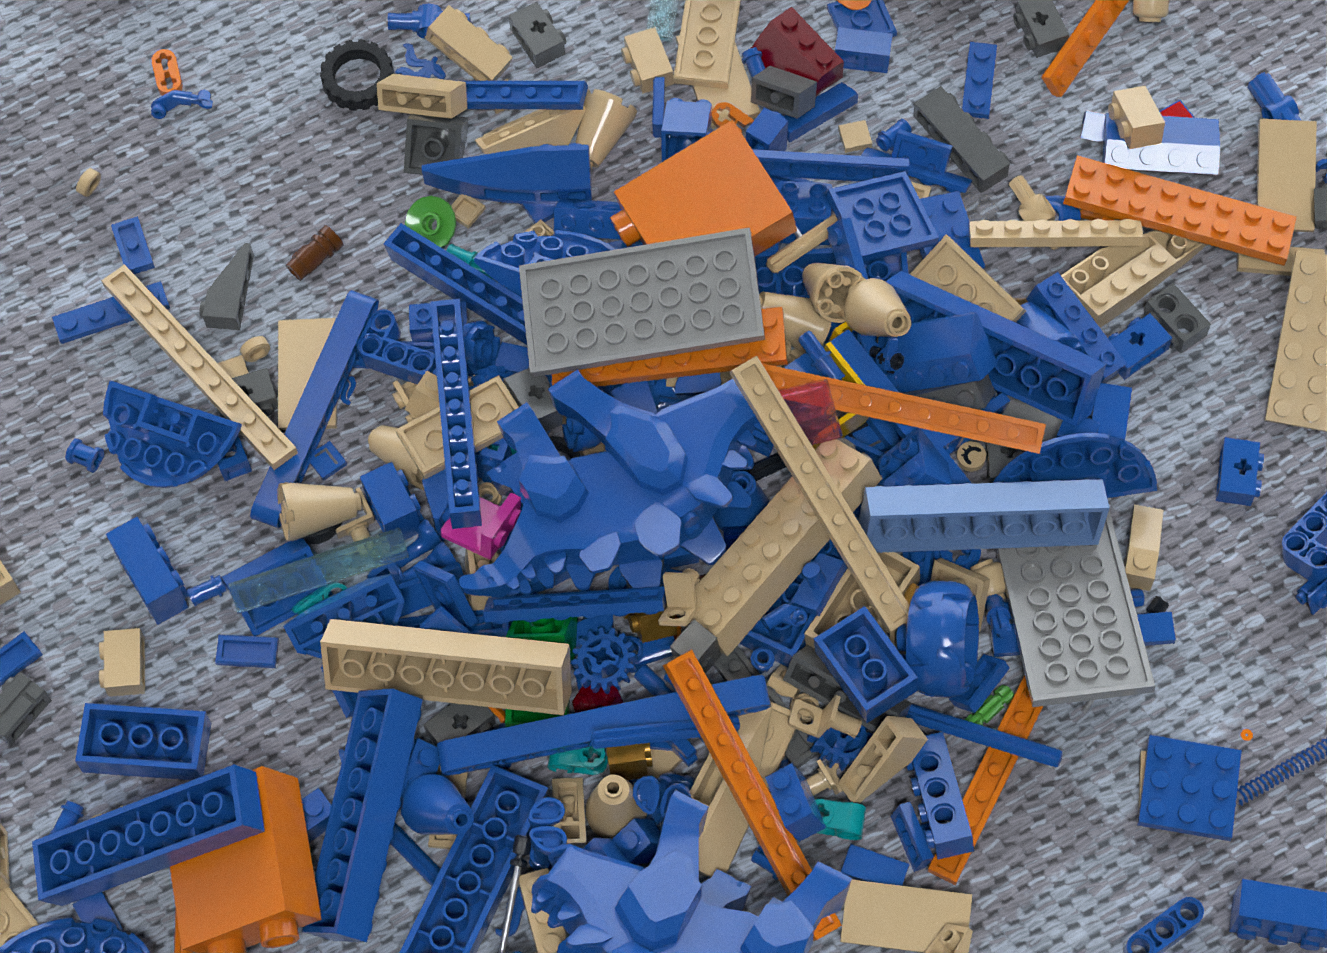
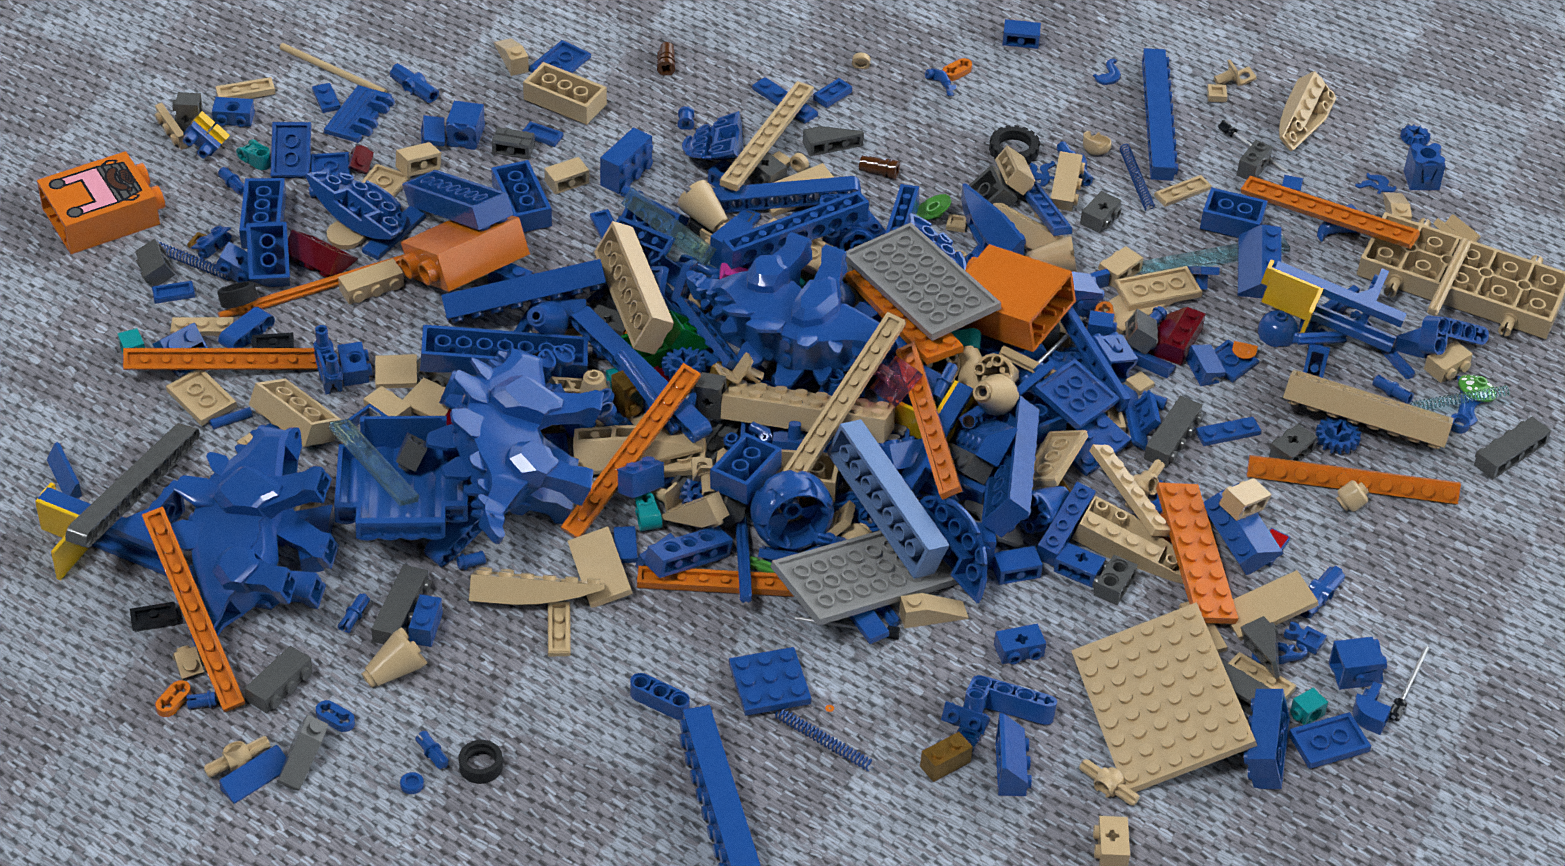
camera: 60 degrees right, 20 degrees down
(816, 136) = (1117, 353): none -> blue piece

